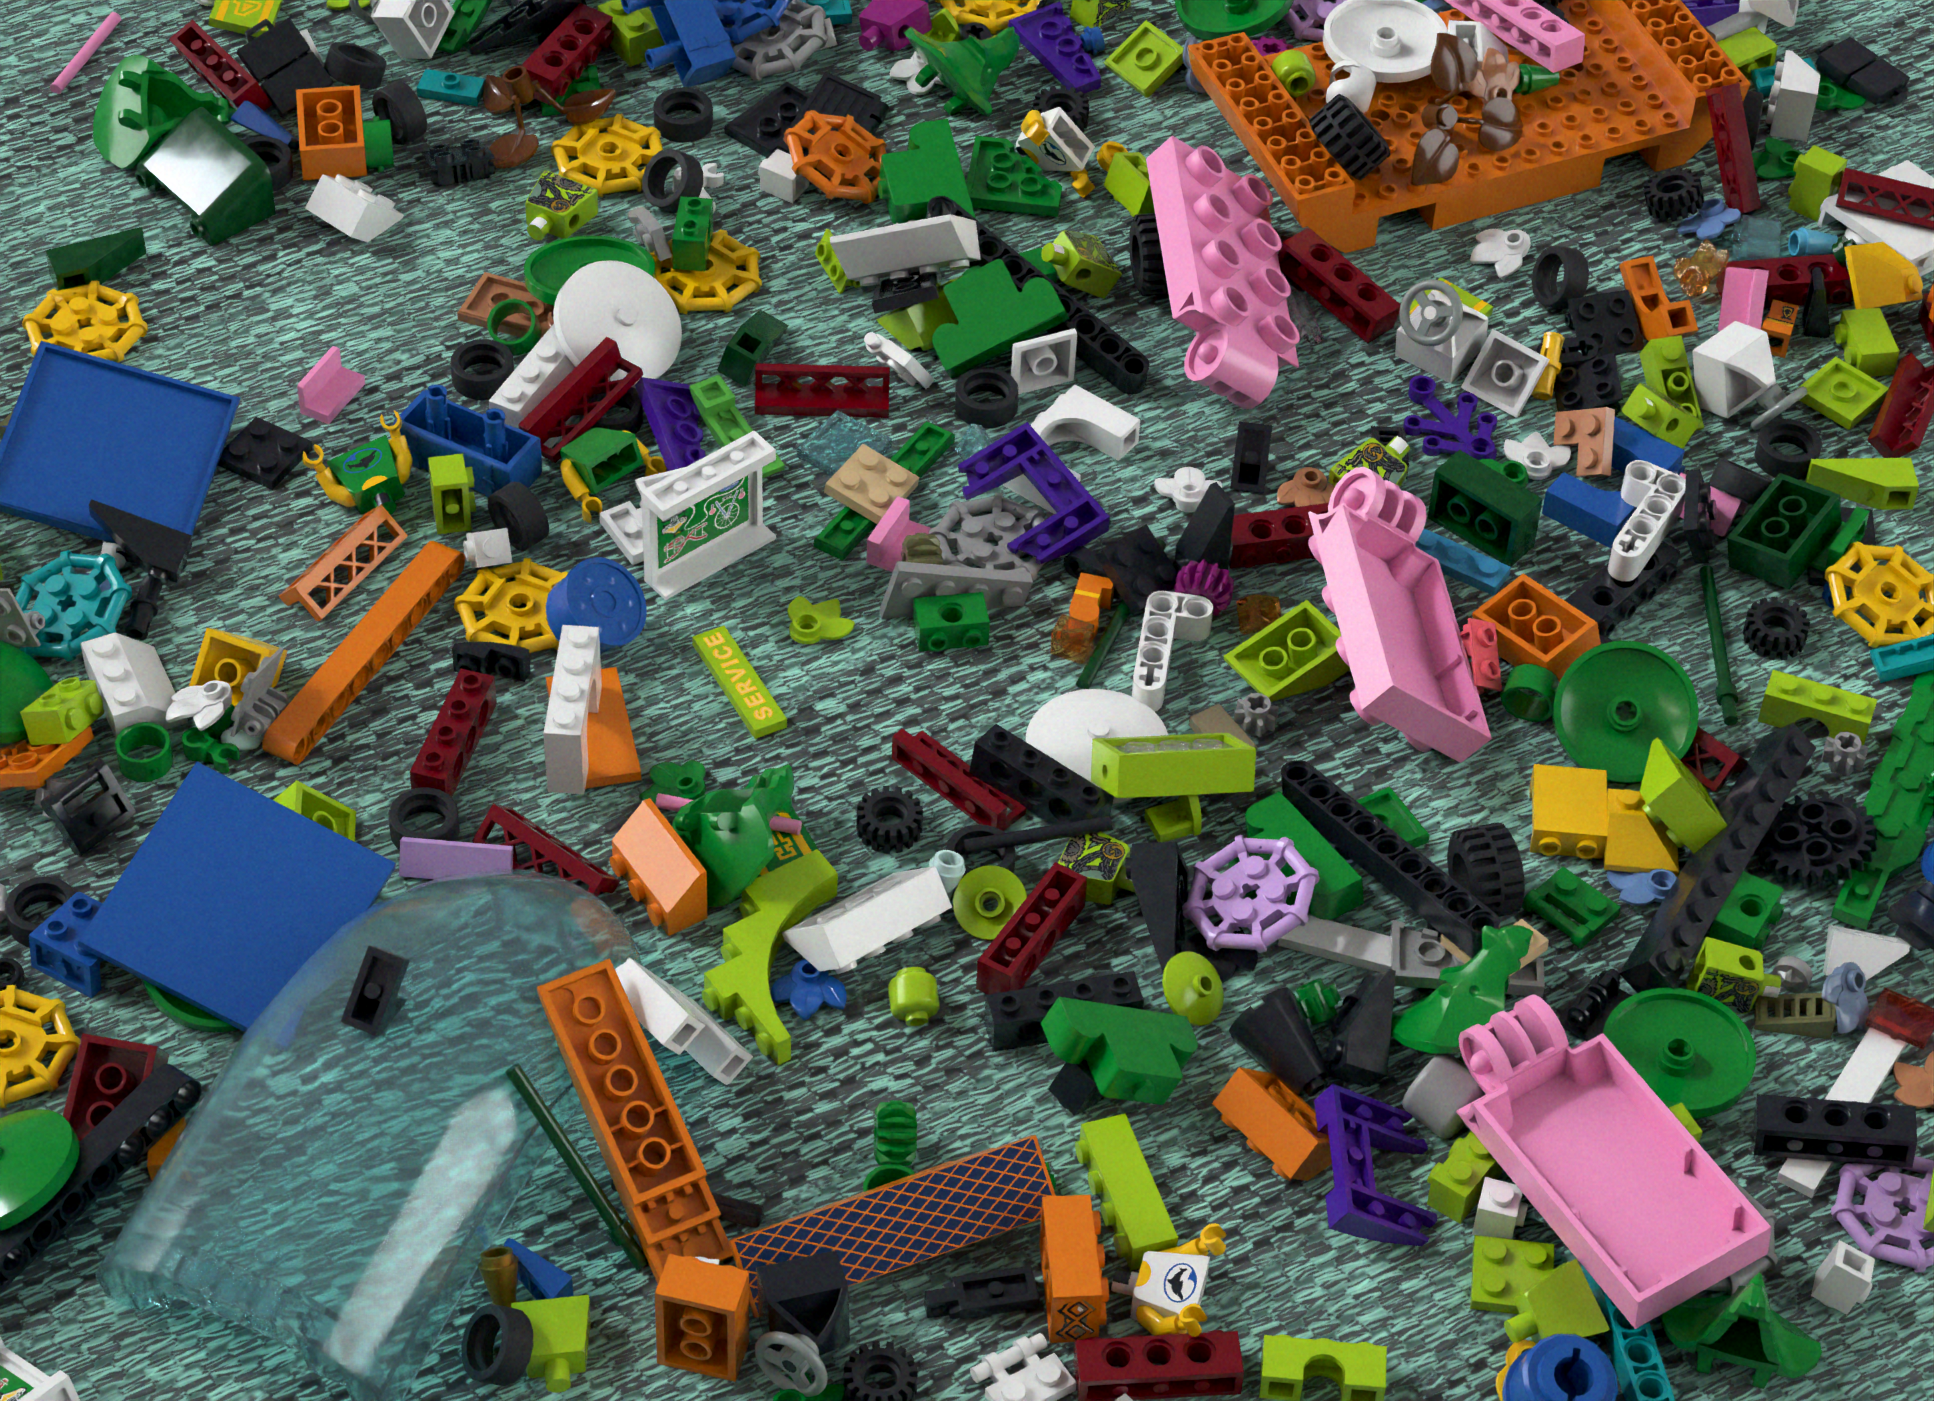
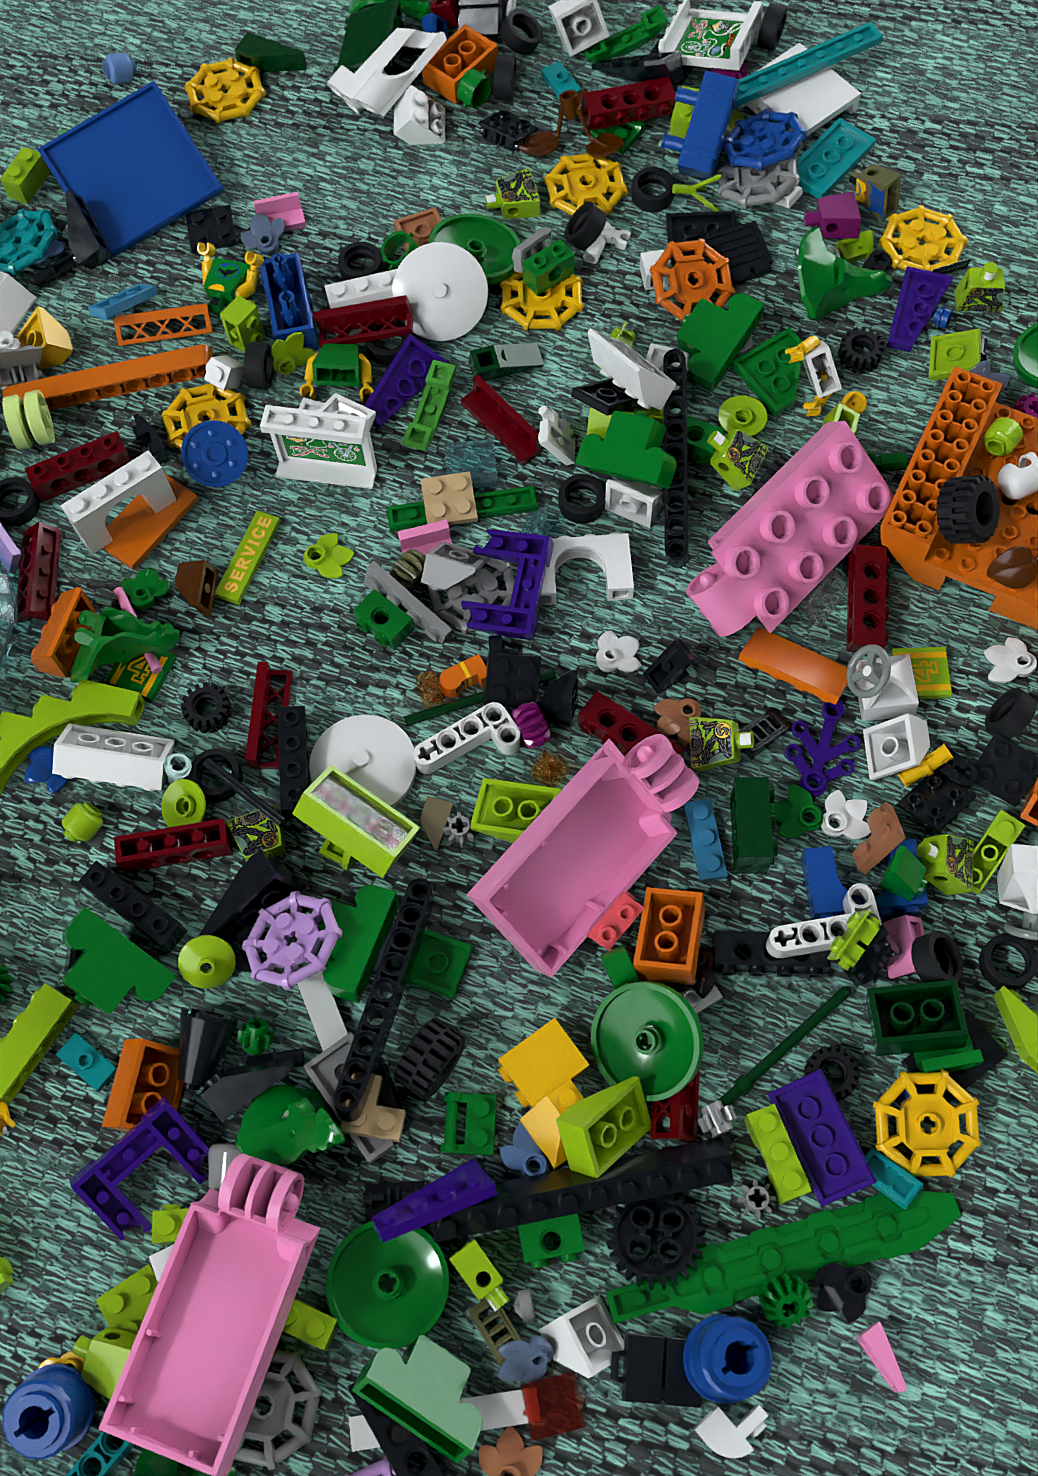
camera: 55 degrees right, 20 degrees up
(275, 203) = (370, 84): none -> white panel
(283, 567) = (123, 301): none -> dark azure plate
(332, 415) = (263, 231): none -> sand blue plate
(346, 732) = (28, 419): none -> yellowish green wheel
(534, 479) = (290, 353): none -> lime plate
(728, 86) = (692, 190): none -> lime plant
(733, 733) = (197, 584): none -> reddish brown slope
(962, 524) = (449, 565): none -> light grey slope
(1032, 229) = (745, 409): none -> lime dish
(1197, 1162) = (87, 1062): none -> teal plate
(1351, 375) = (795, 665): none -> orange tile
(1637, 948) = (441, 1198): none -> dark purple wing
(1646, 434) = (904, 875): none -> green slope
(1676, 483) = (858, 929): none -> lime hinge
(1744, 727) = (717, 1119): none -> light grey gear
(1823, 1076) = (423, 1395): none -> brick
(1833, 663) = (822, 1138): none -> dark purple tile

